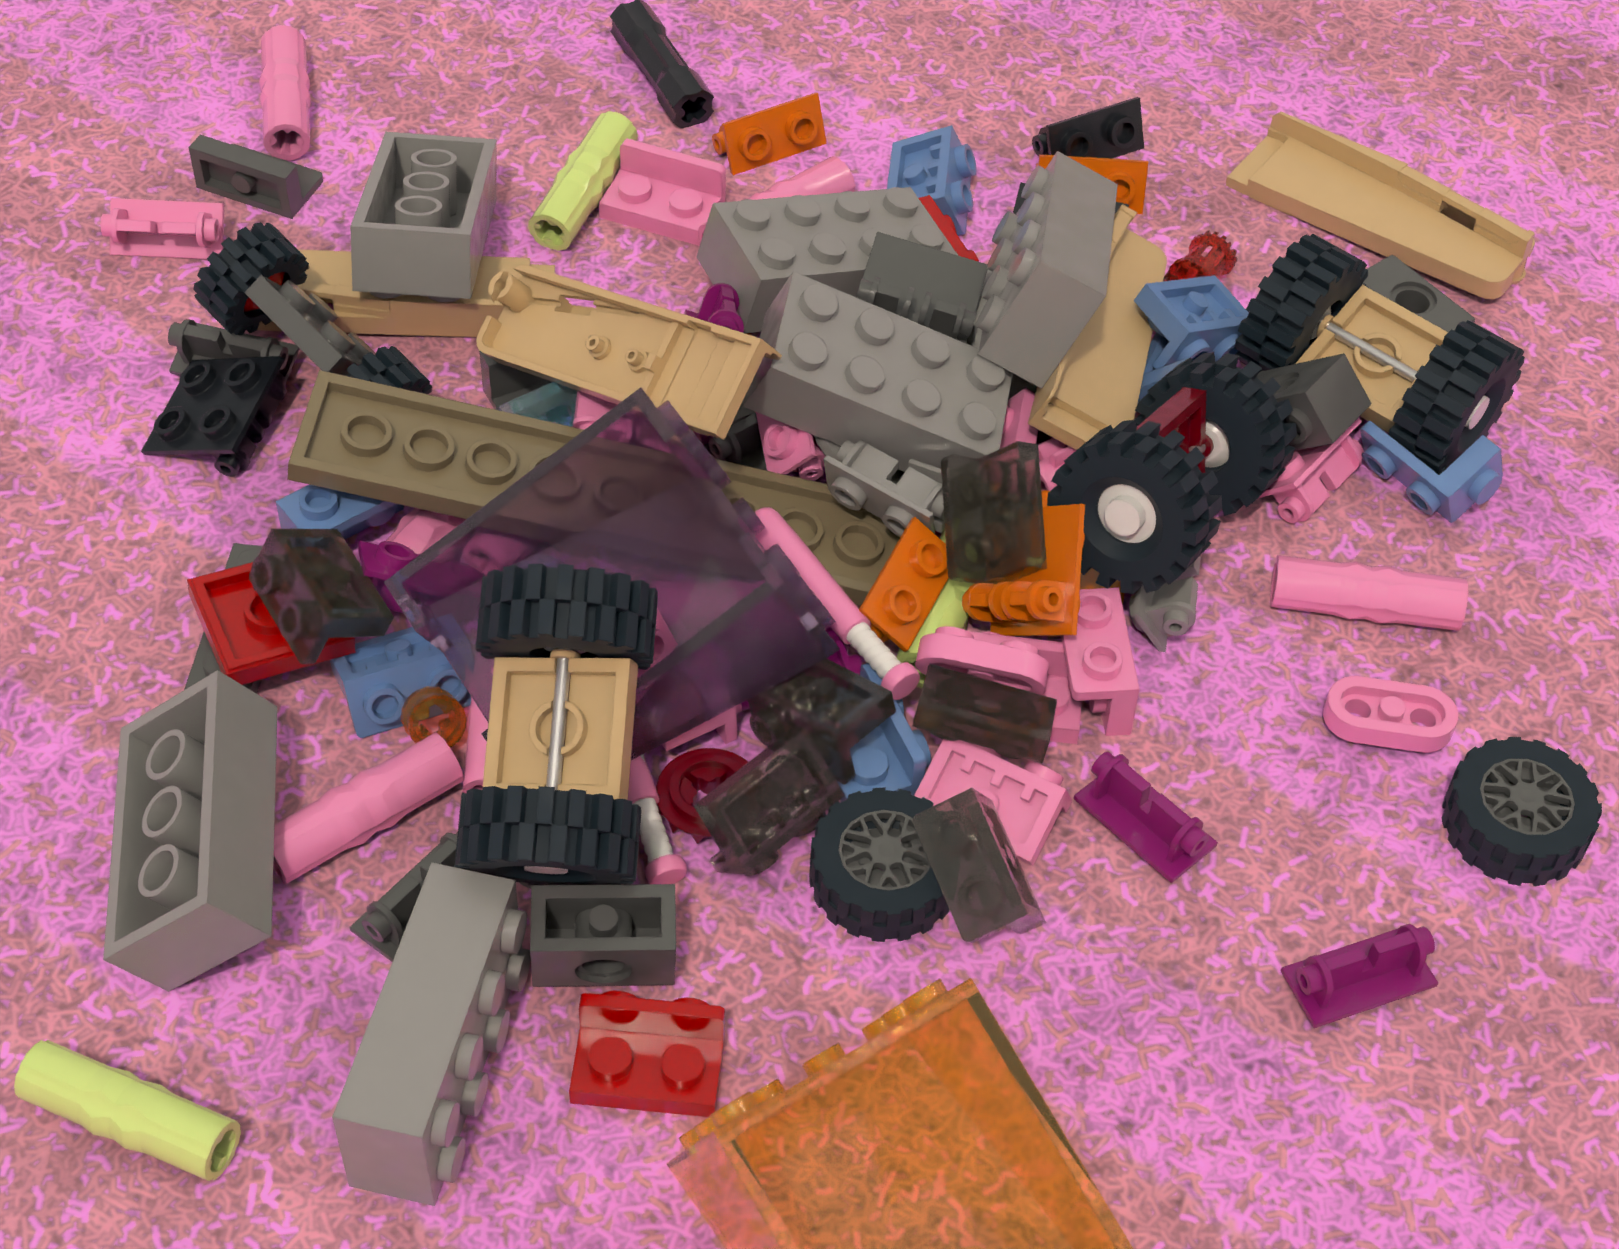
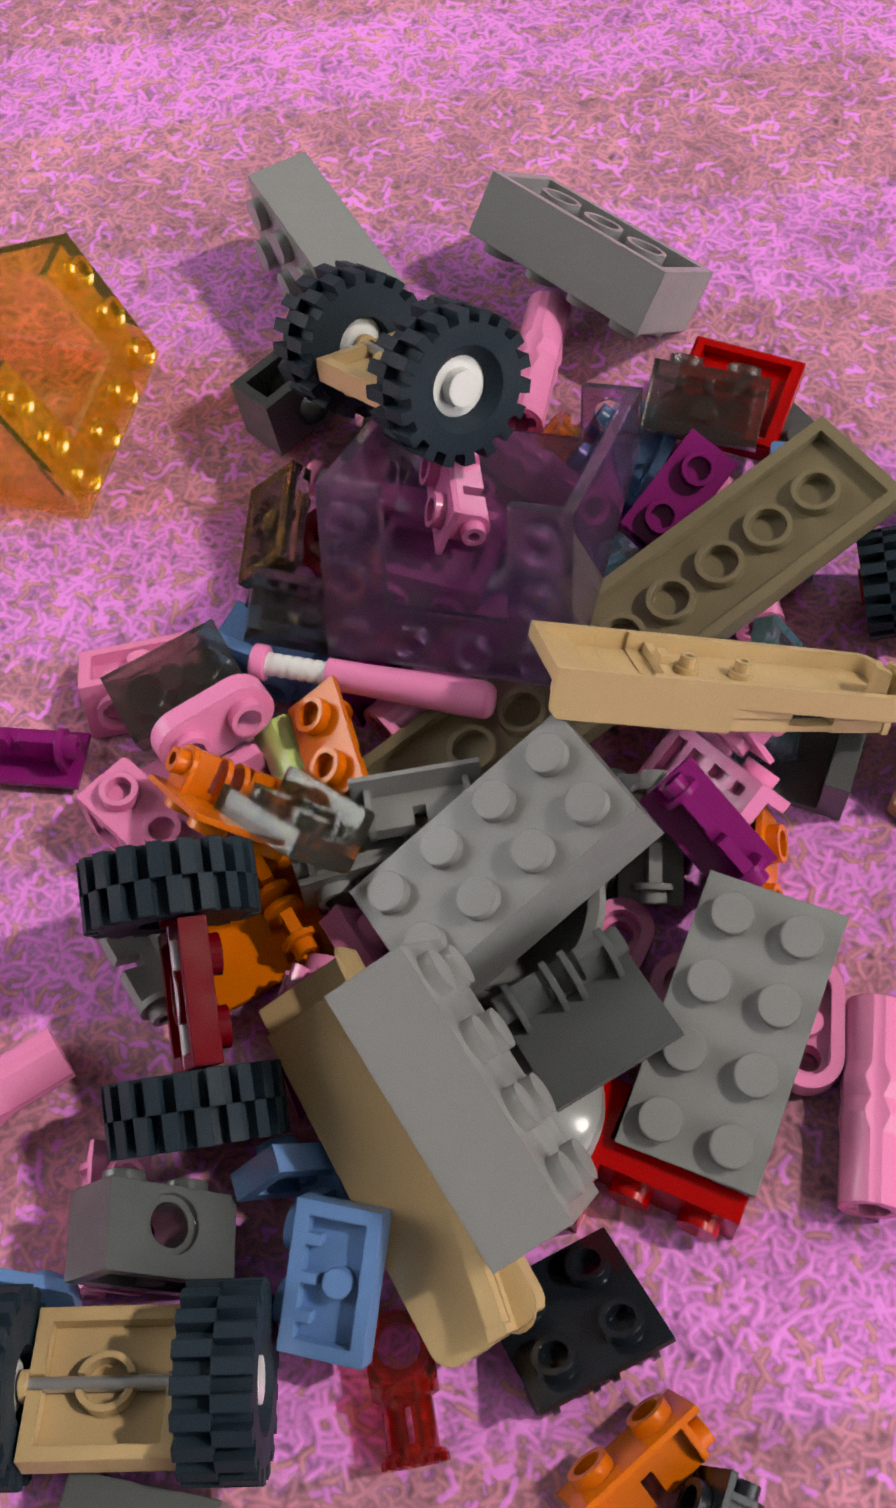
camera: 145 degrees right, 10 degrees up
(127, 1109) = (457, 160): yellowish green axle -> none
(648, 1054) = (201, 386): red bracket -> none
(845, 855) = (172, 552): black wheel -> none
(936, 167) = (784, 1294): medium blue bracket -> none
(977, 867) = (93, 599): clear smoke bracket -> none

